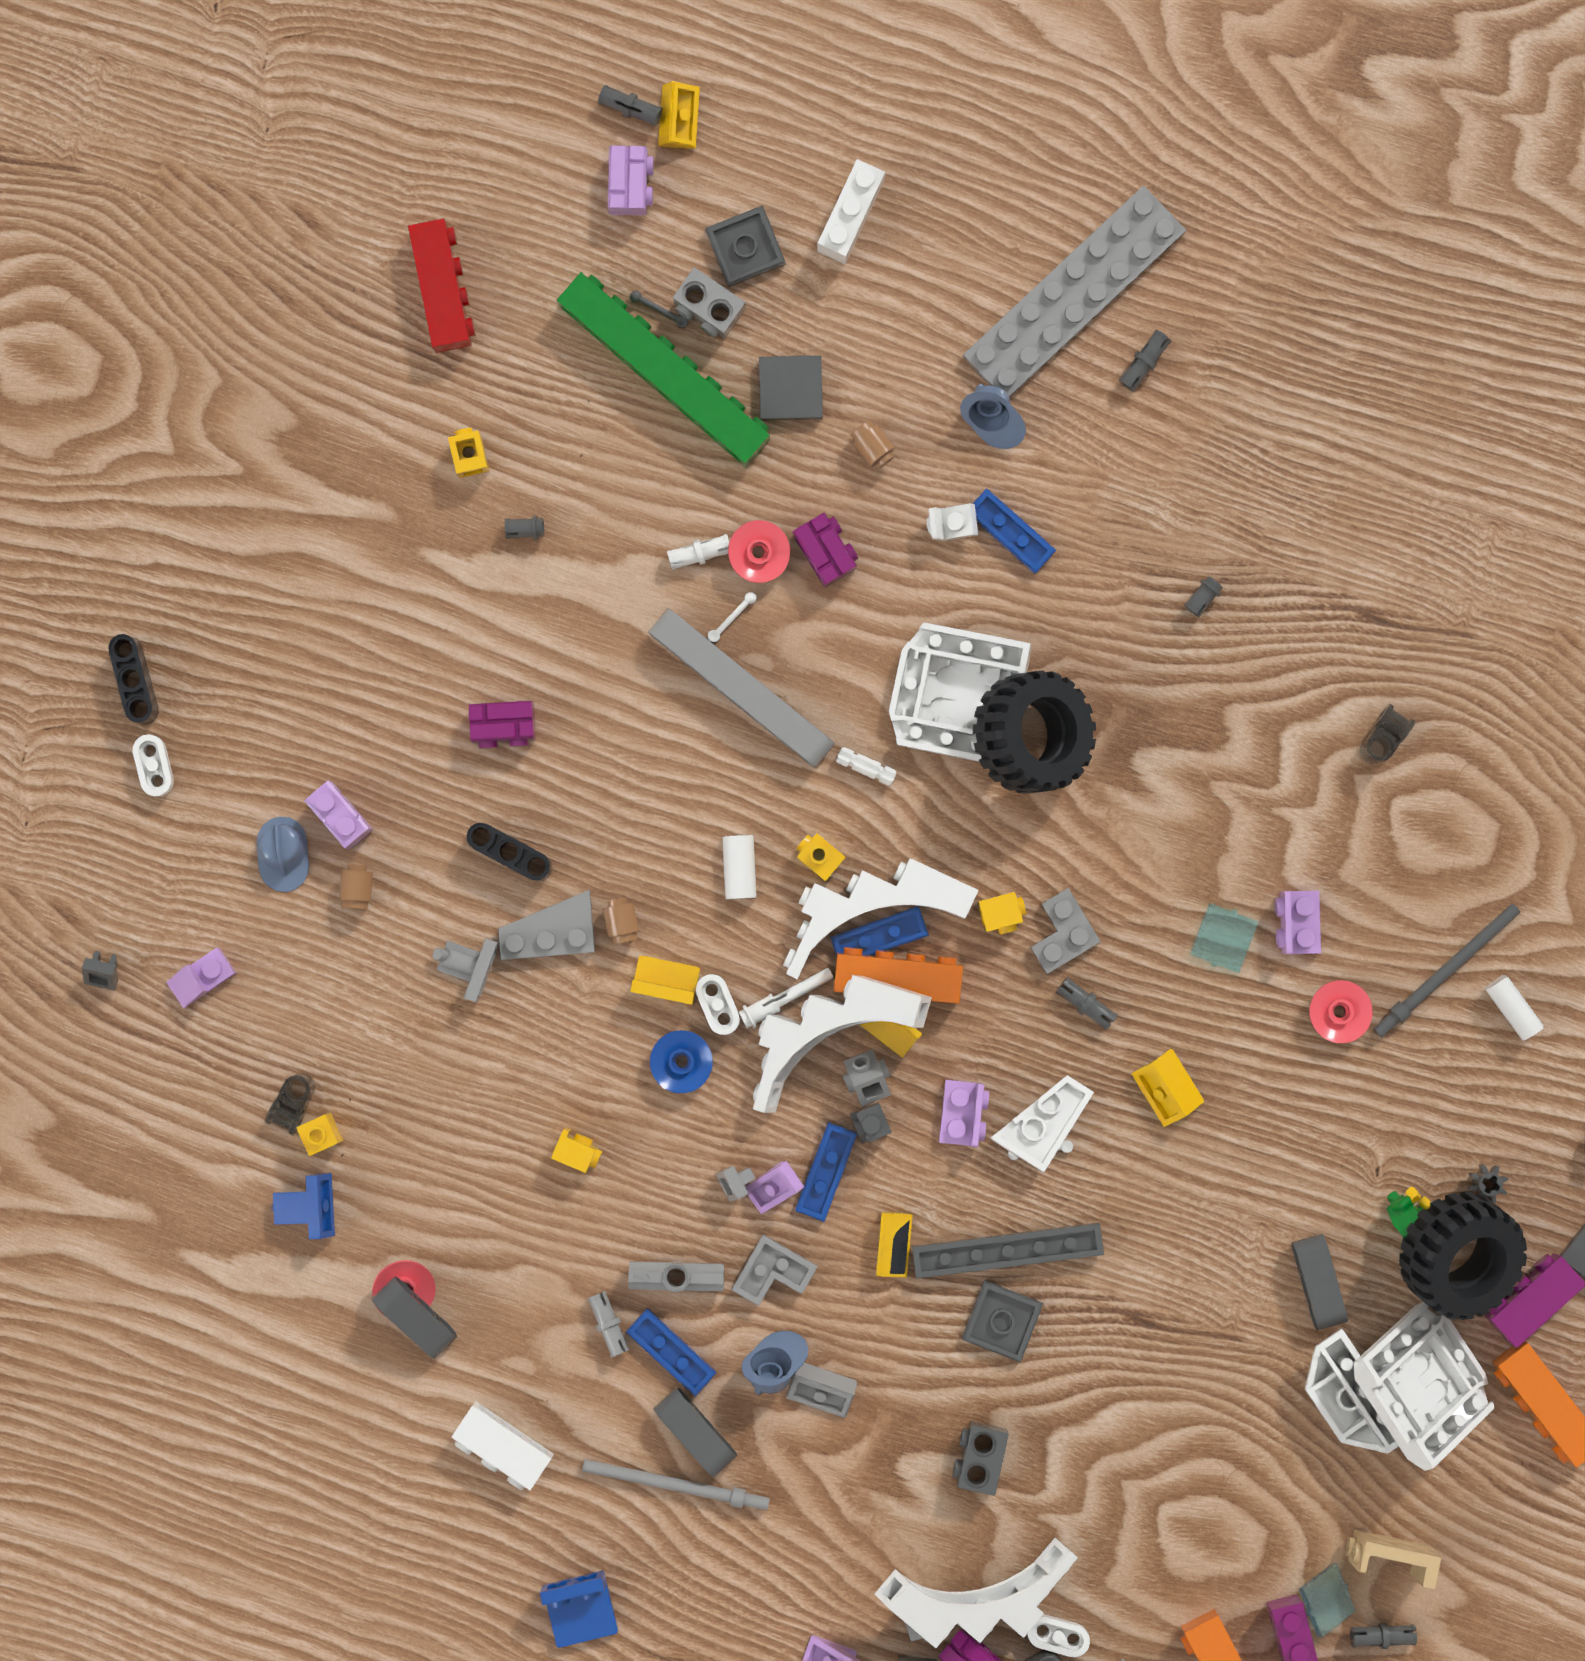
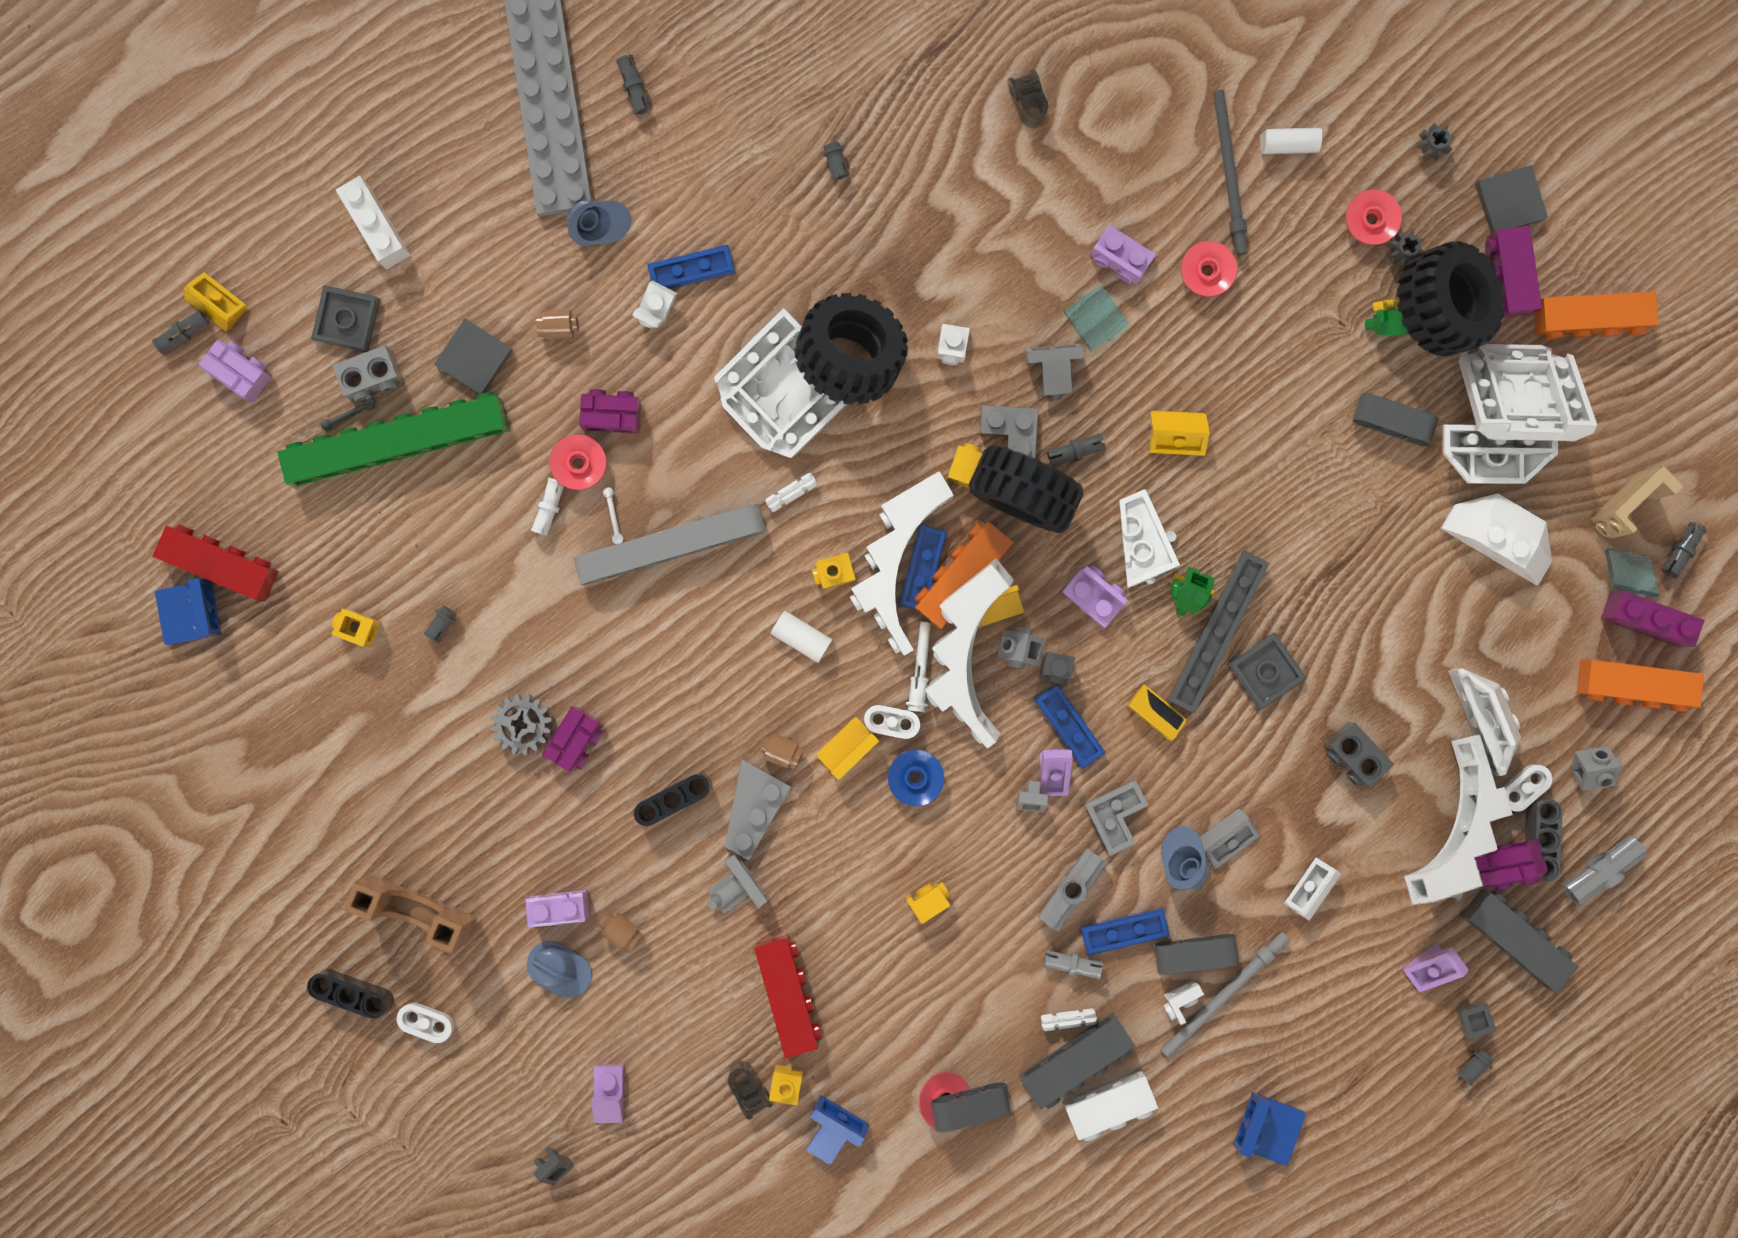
camera: 60 degrees left, 0 degrees up
(255, 724) = (446, 926): none -> medium nougat arch
(378, 290) = (188, 612): none -> blue bracket
(401, 1079) = (786, 995): none -> red brick
(469, 670) = (518, 737): none -> light grey gear
(521, 1388) = (1077, 1061): none -> dark grey brick
(554, 1354) = (1068, 1019): none -> white axle
(649, 1447) = (1185, 996): none -> white bracket
(828, 1499) = (1312, 889): none -> white brick
(1014, 981) = (1026, 489): none -> black tyre
(1027, 1200) = (1191, 591): none -> green piece
(1100, 1557) = (1489, 716): none -> white wedge
(1106, 821) = (952, 344): none -> white bracket
(1151, 930) = (1055, 366): none -> light grey piece
(1281, 1456) = (1503, 534): none -> white wedge
(1511, 1135) = (1382, 208): none -> coral dish

